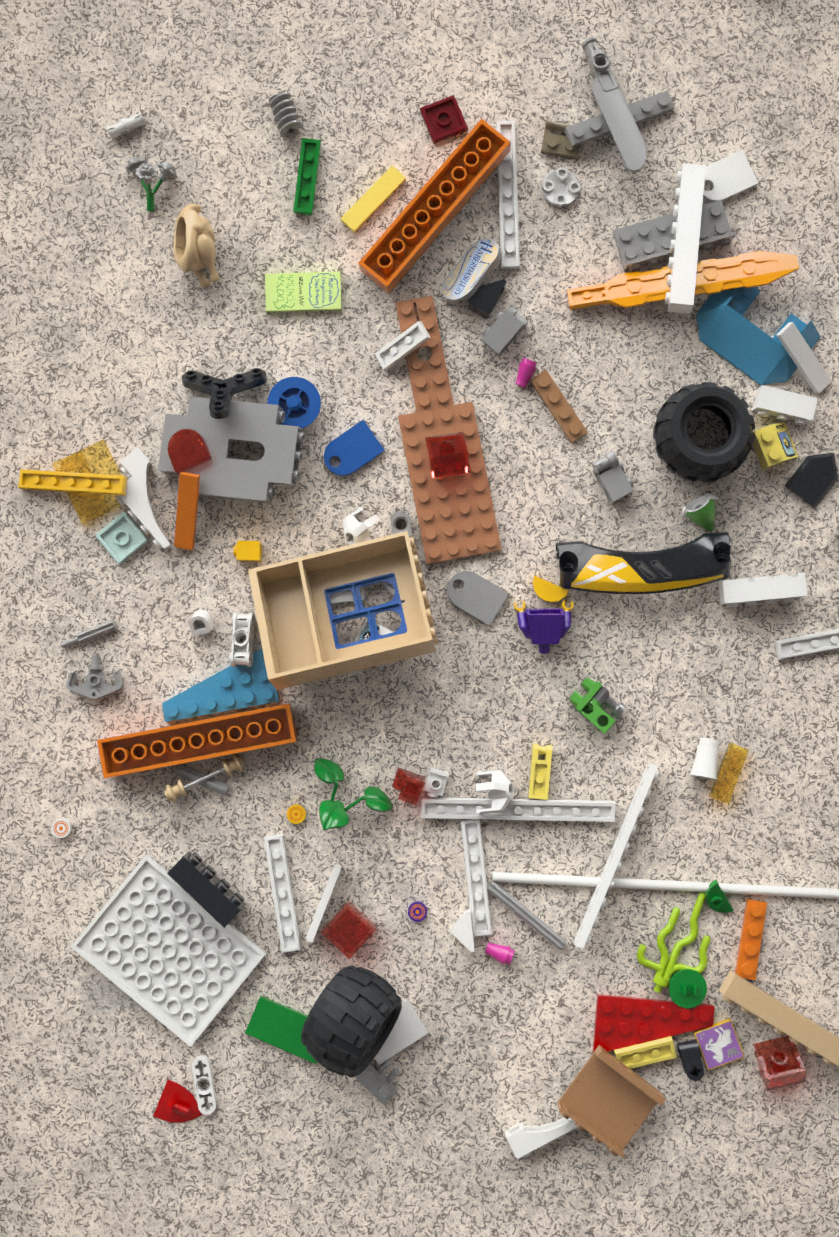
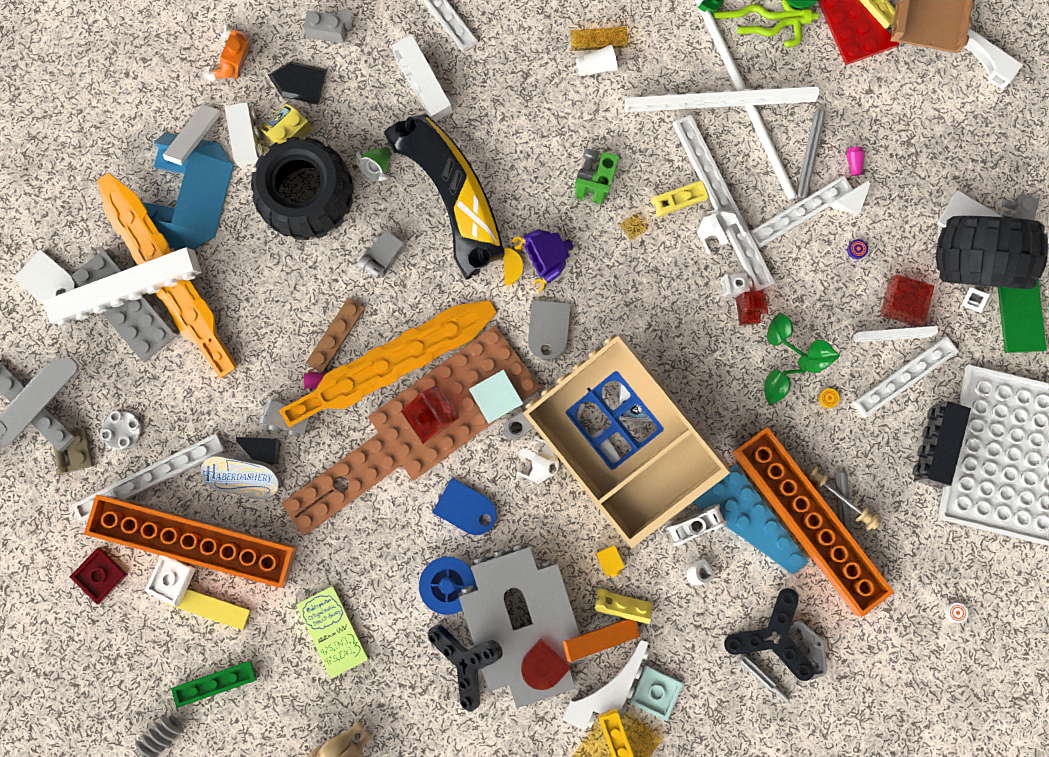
camera: 115 degrees left, 5 degrees down
(103, 662) = (780, 623): none -> black piece
(205, 544) = (623, 606): none -> light yellow plate
(315, 988) = (976, 300): none -> white brick
(402, 345) = (343, 506): white plate -> none
(409, 175) = (170, 580): none -> white tile
(436, 519) = (496, 396): none -> light aqua tile
(511, 446) = (392, 360): none -> light orange plate
(533, 716) = (633, 227): none -> clear yellow tile

